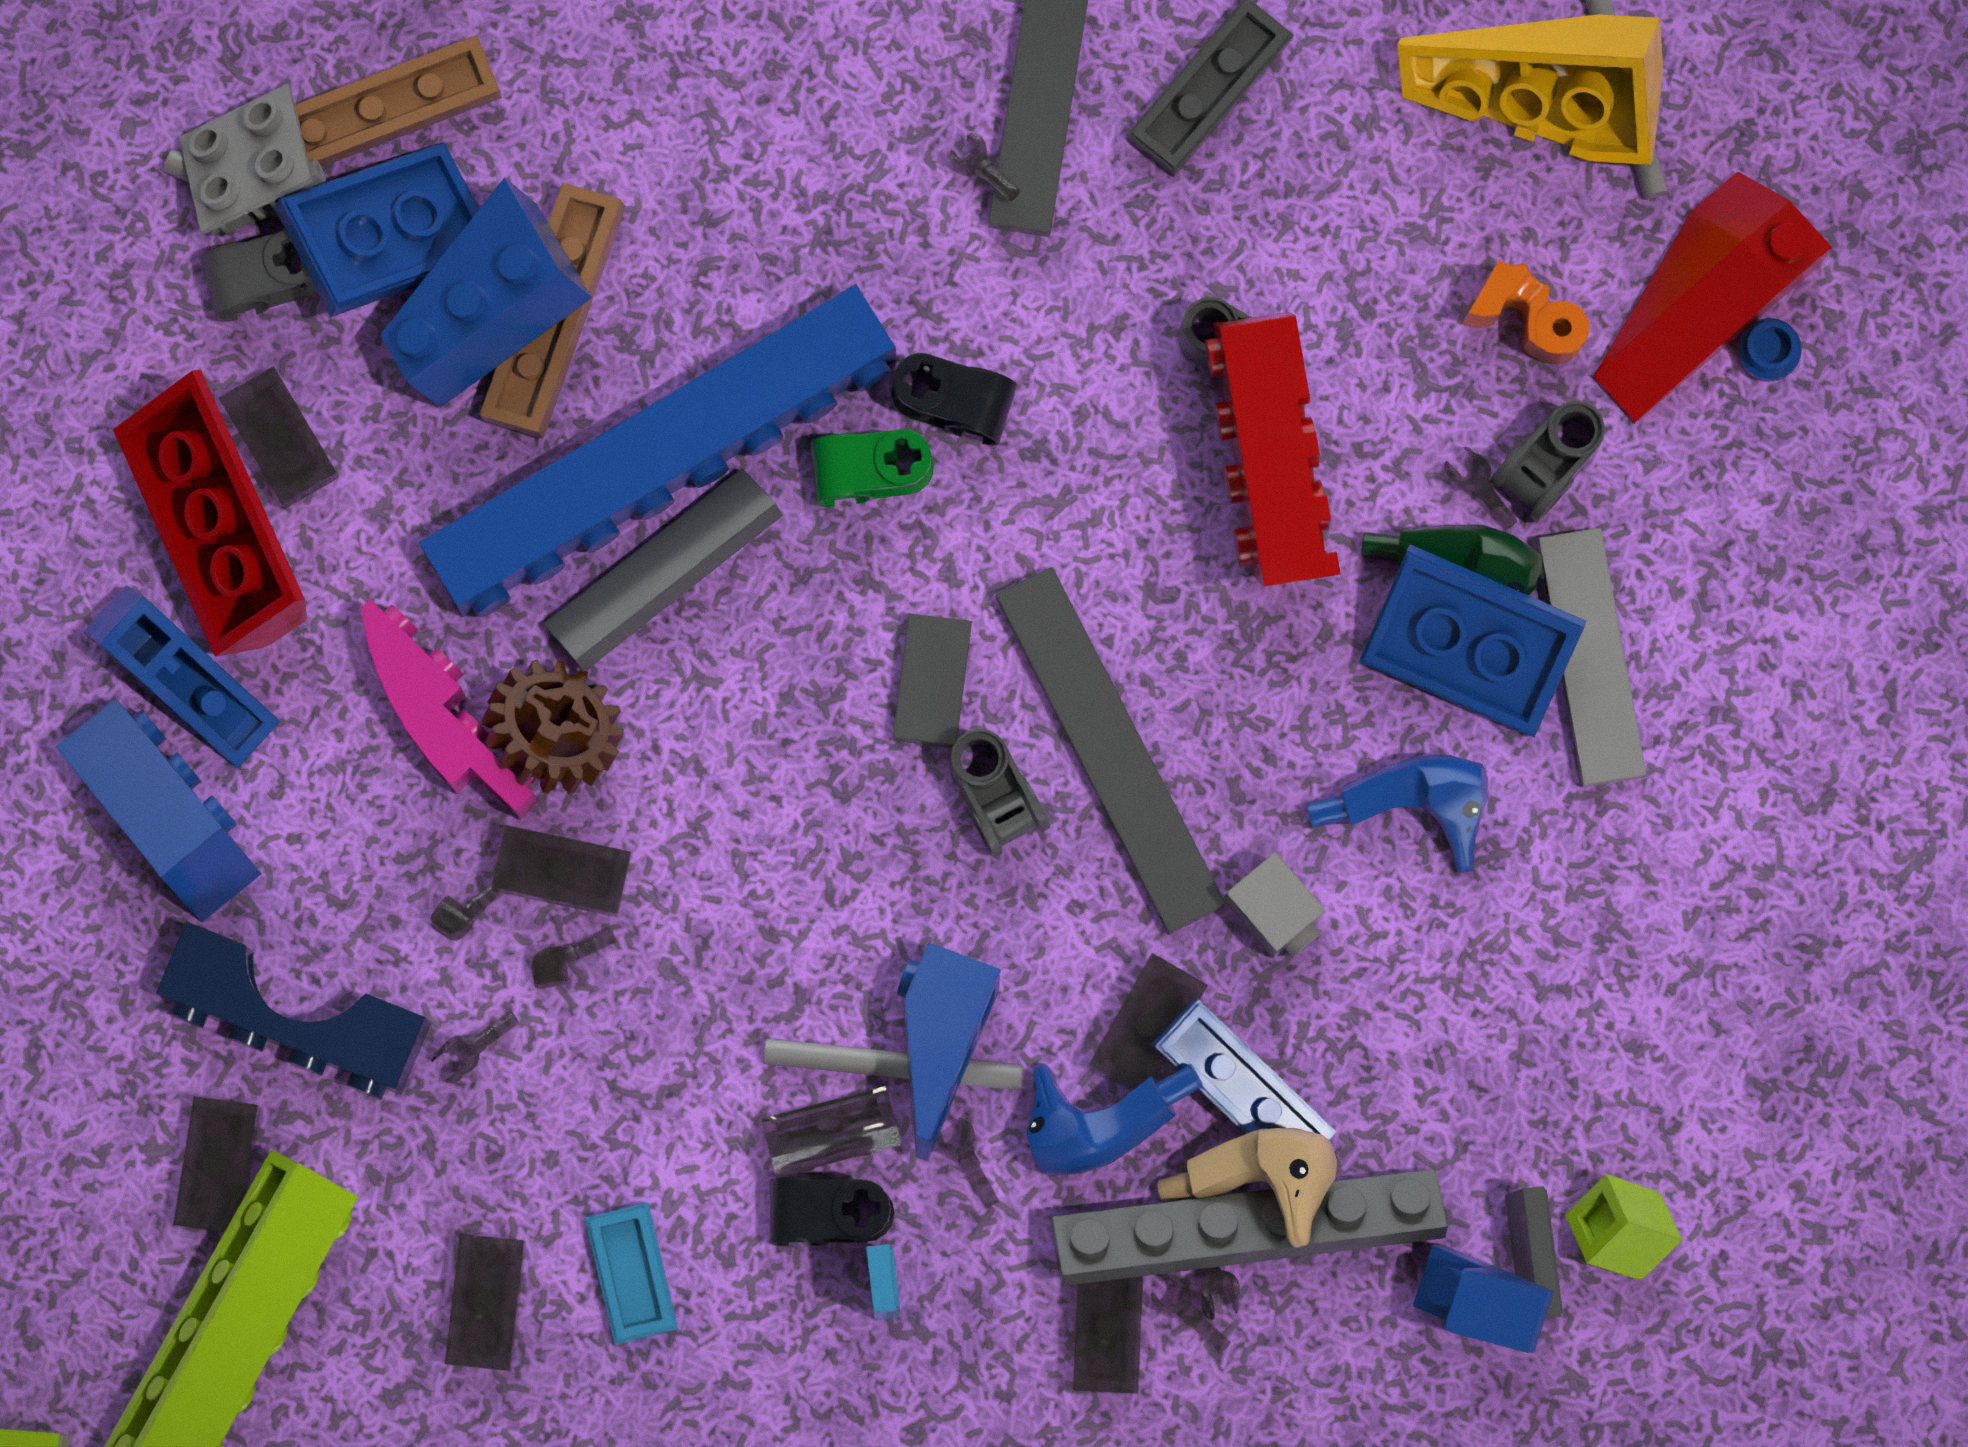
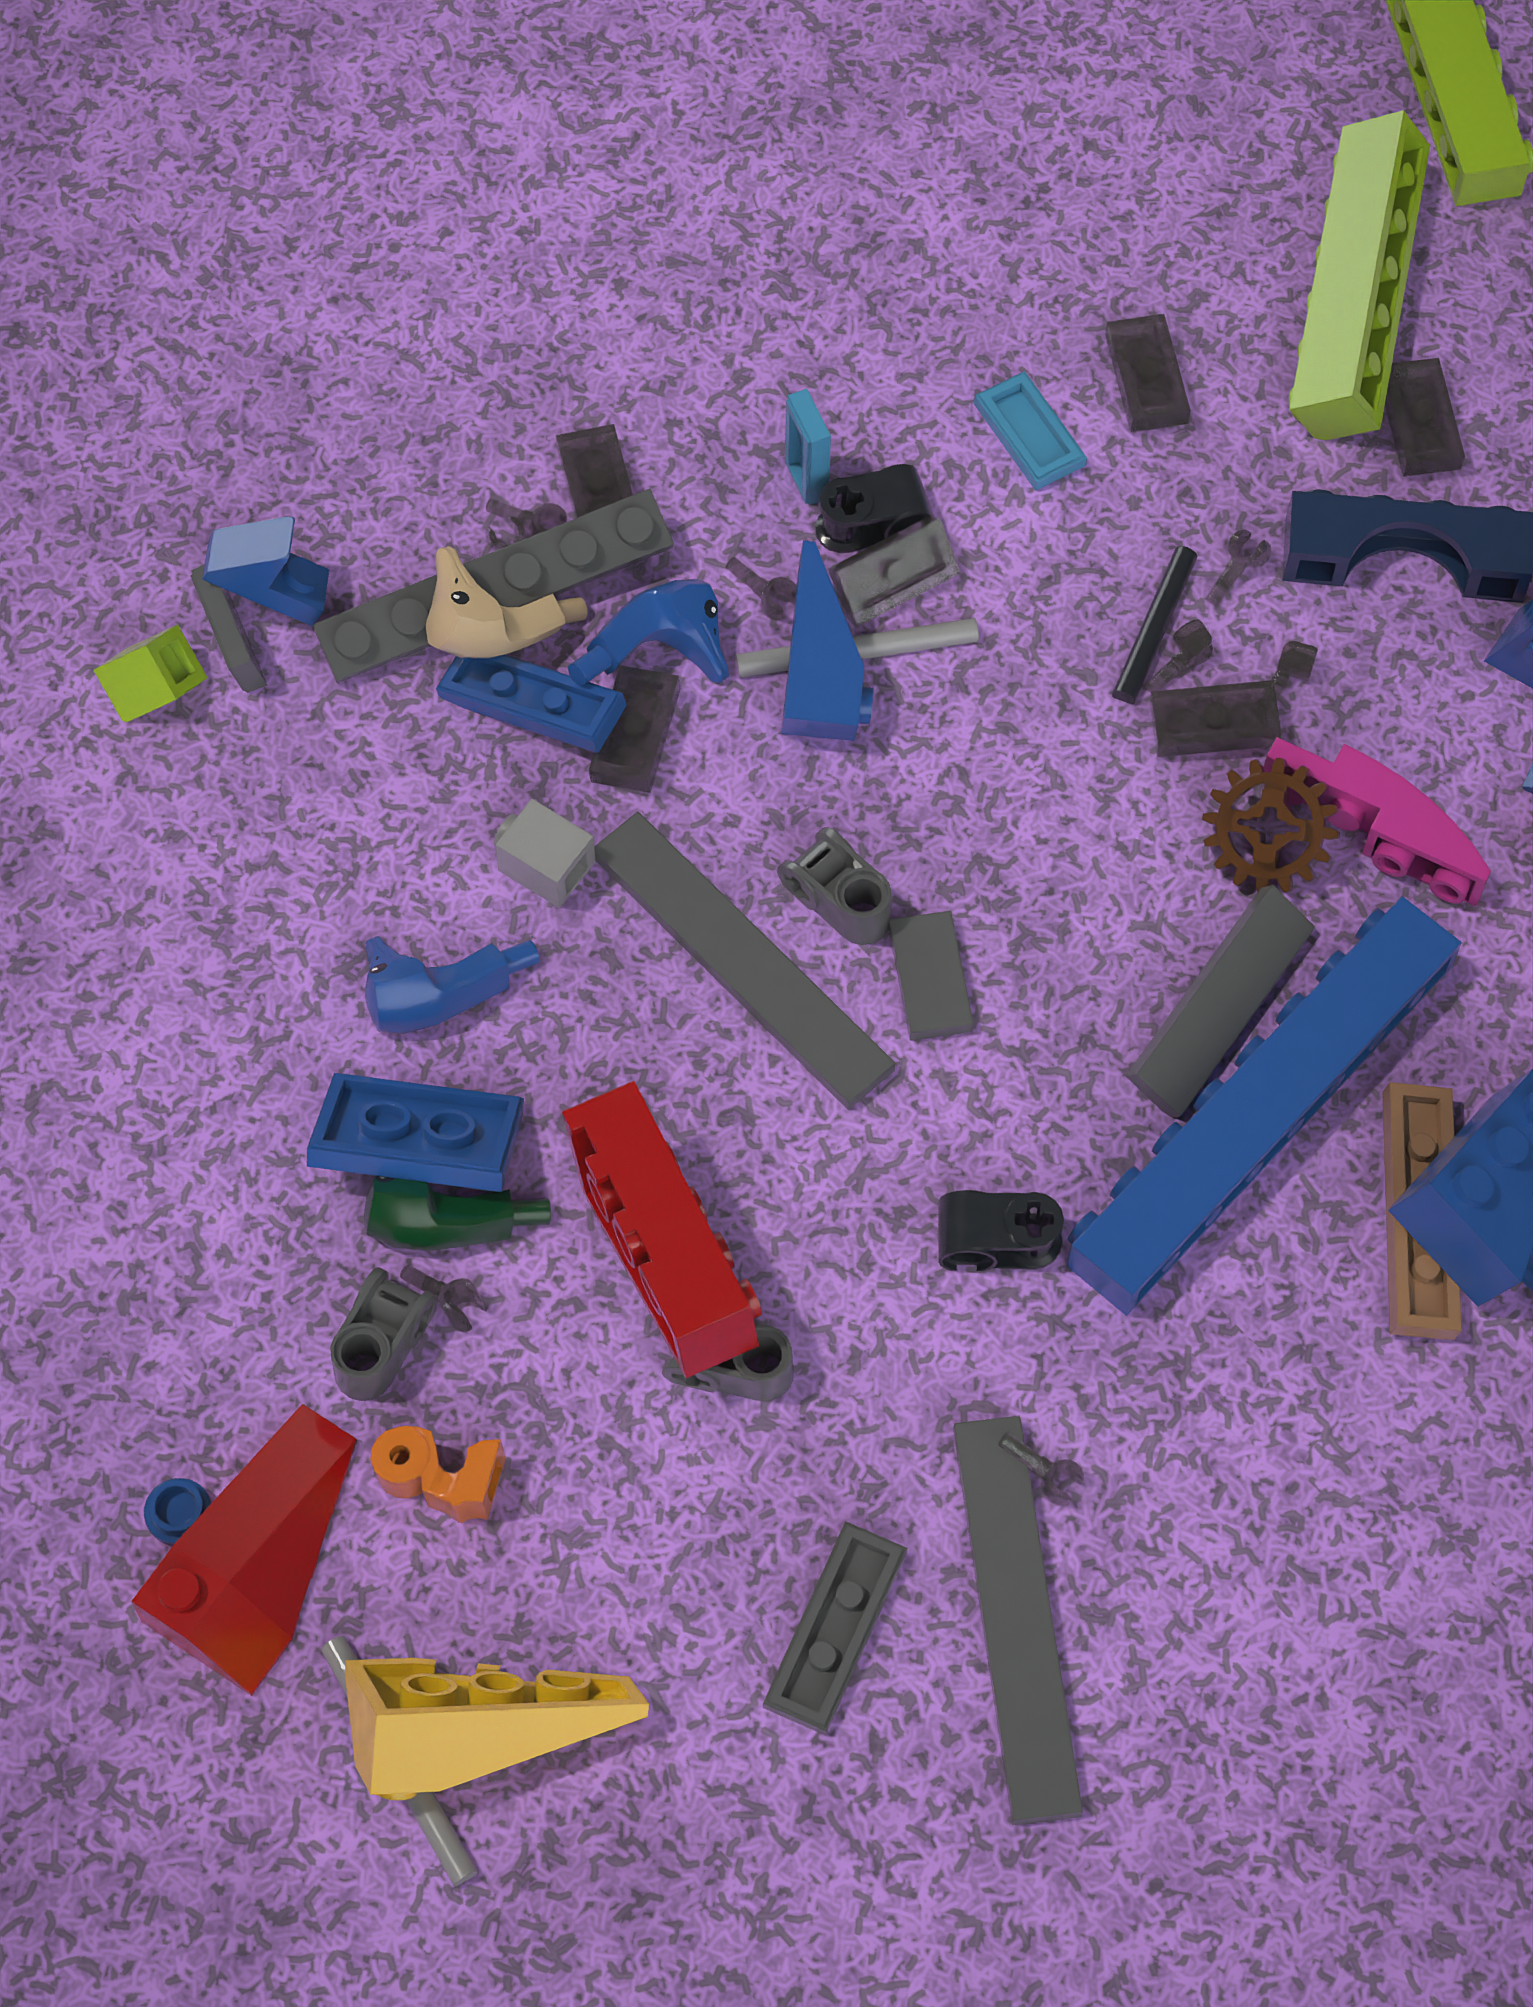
camera: 165 degrees right, 15 degrees down
(581, 1005) = (1155, 625): none -> black bar
(858, 468) = (1065, 1140): green piece -> none
(1597, 673) = (307, 1197): light grey tile -> none

